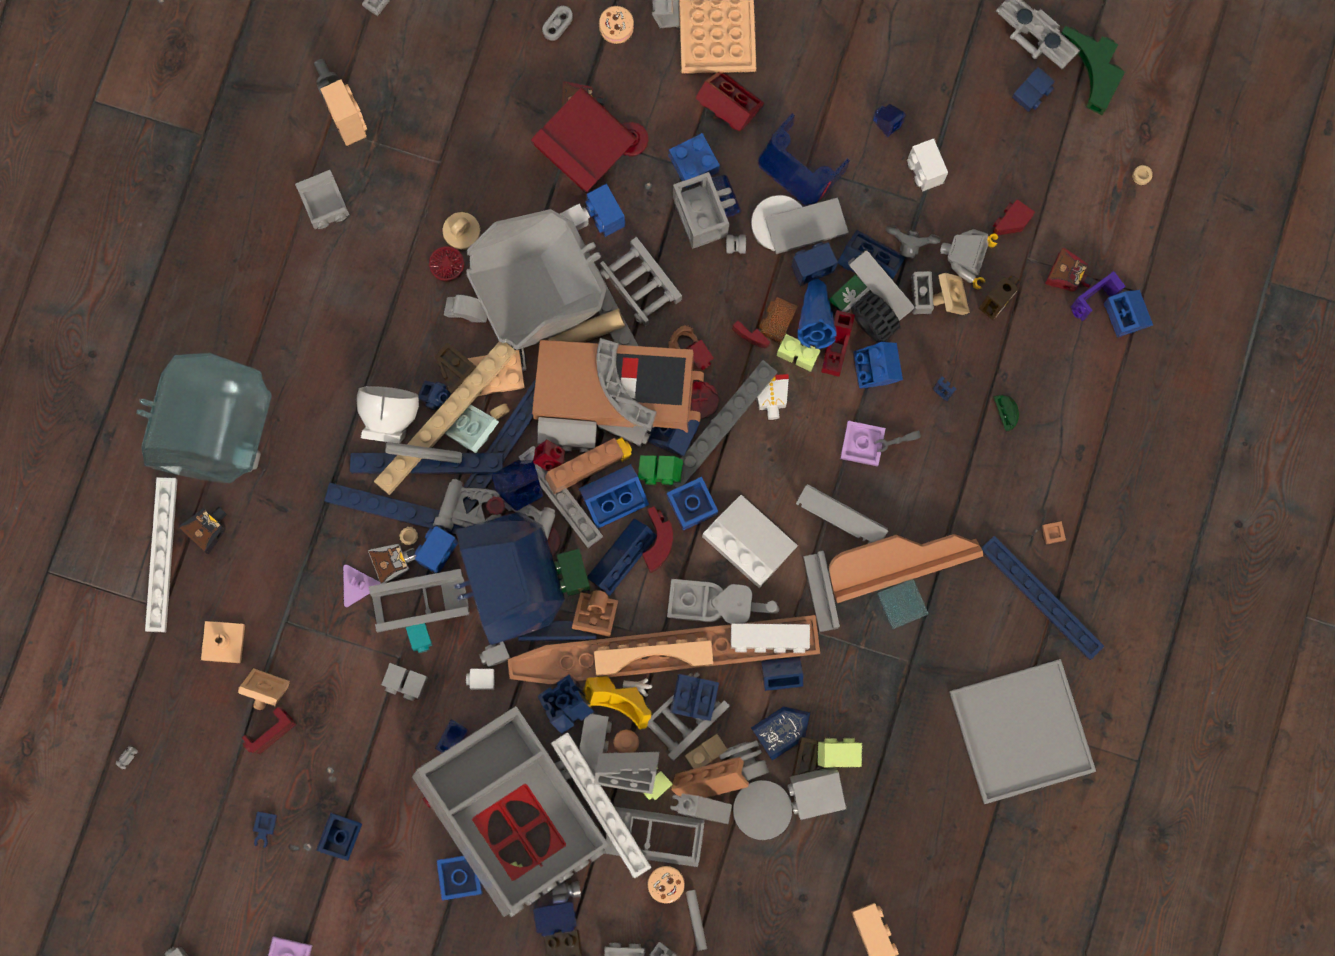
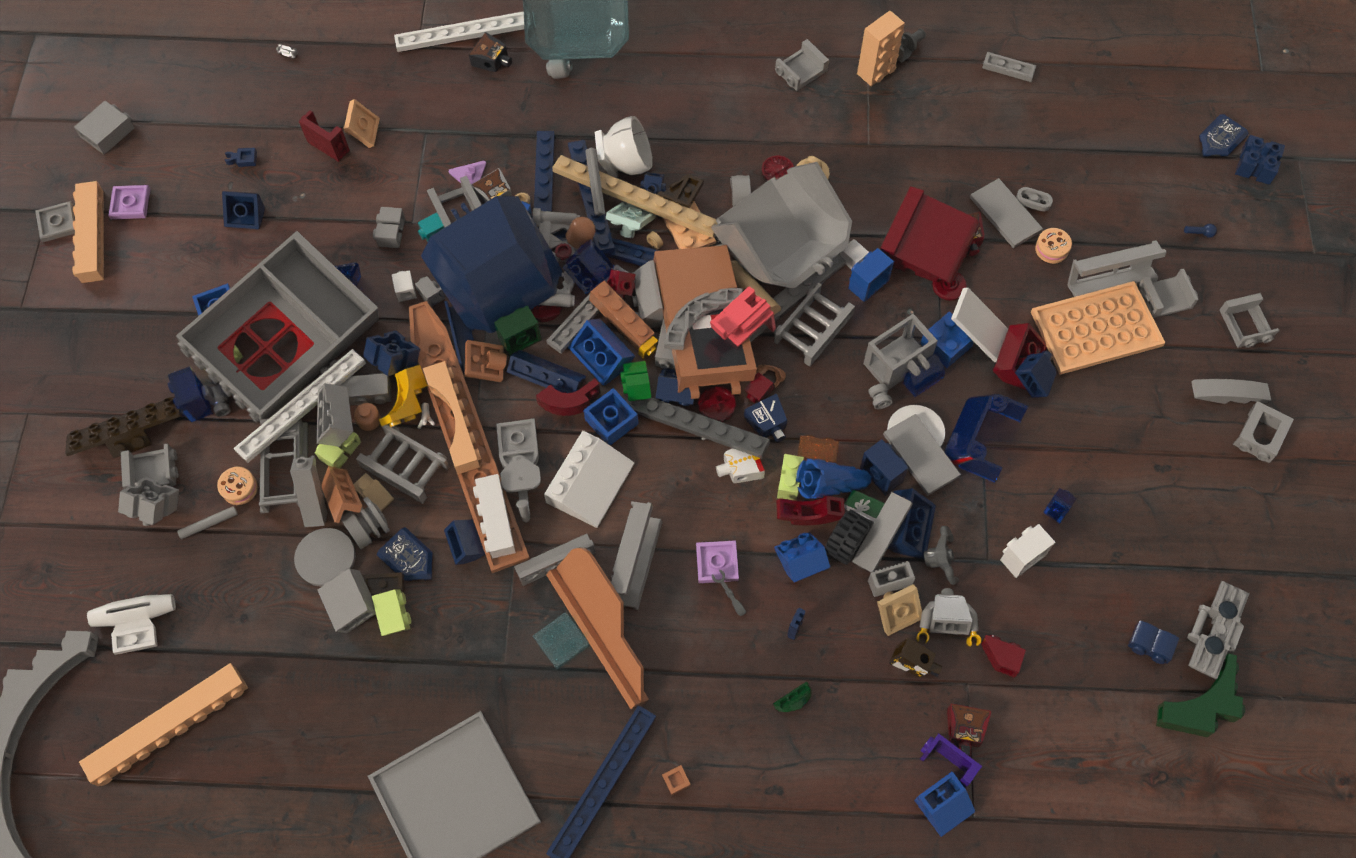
camera: 80 degrees right, 15 degrees down
(223, 642) = (397, 92): light nougat tile -> none
(479, 482) = (580, 232): none -> nougat helmet
(564, 56) = (1006, 213): none -> light grey tile
(636, 348) = (743, 317): none -> coral piece
(694, 126) = (979, 323): none -> white tile
(694, 697) = (420, 461): dark blue slope -> none
(731, 355) = (767, 418): none -> dark blue torso
(754, 91) = (1037, 374): none -> dark blue torso
(755, 338) = (794, 434): dark red slope -> none
(1142, 175) = (1107, 785): tan tile -> none

